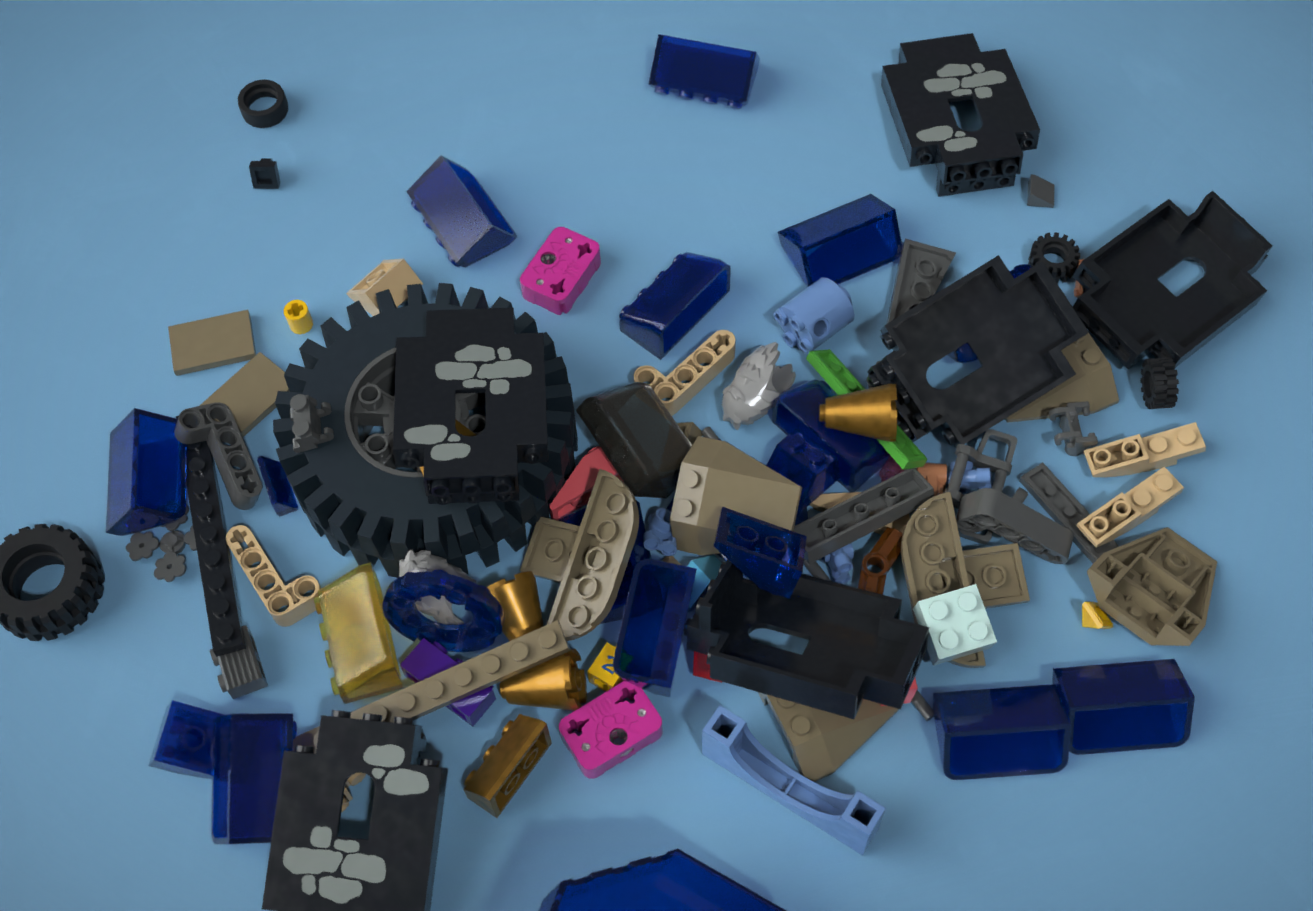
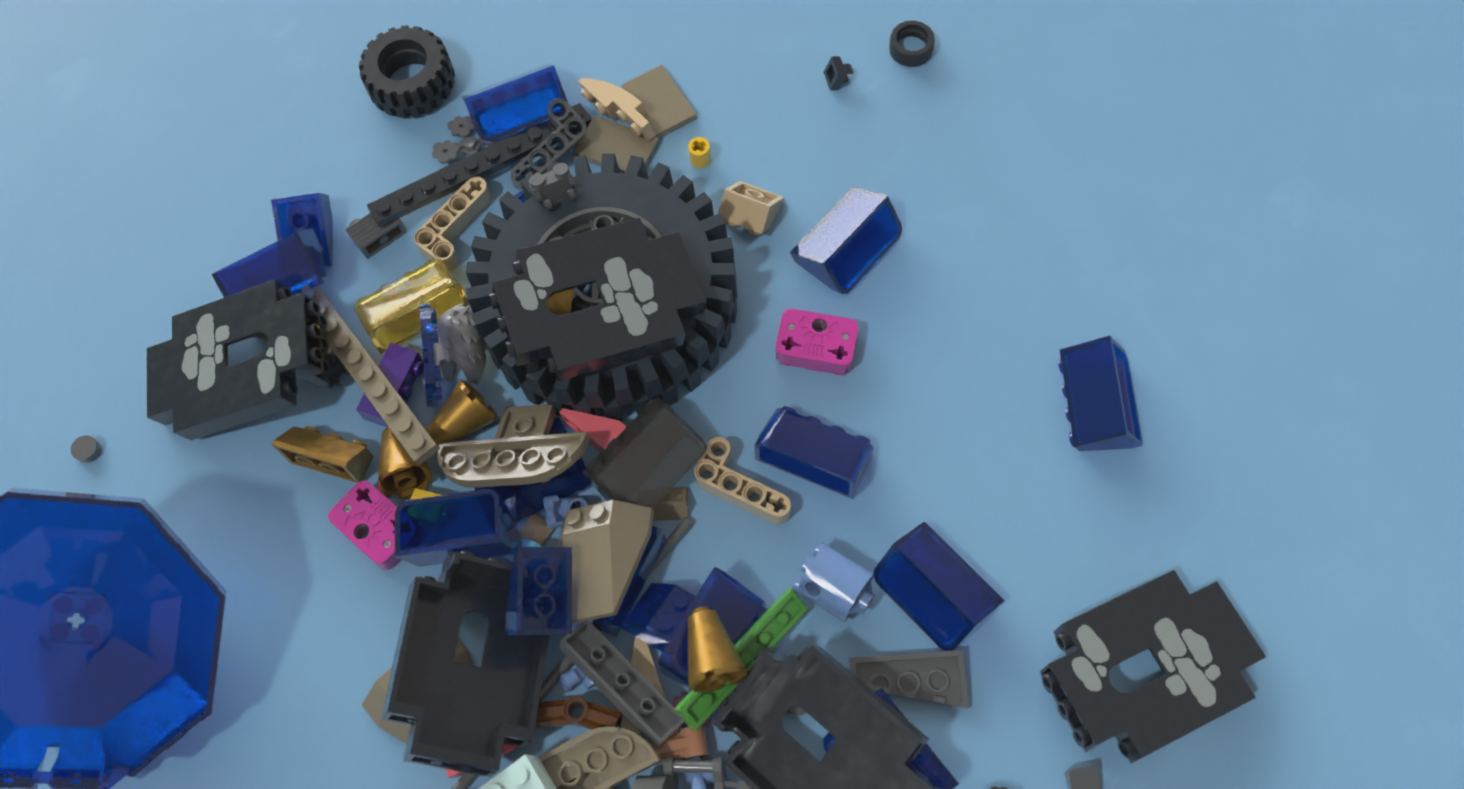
camera: 75 degrees right, 5 degrees up
(193, 378) = (617, 103): none -> tan slope
(756, 386) = (738, 551): light grey head -> none
(845, 817) = (322, 742): medium blue arch -> none

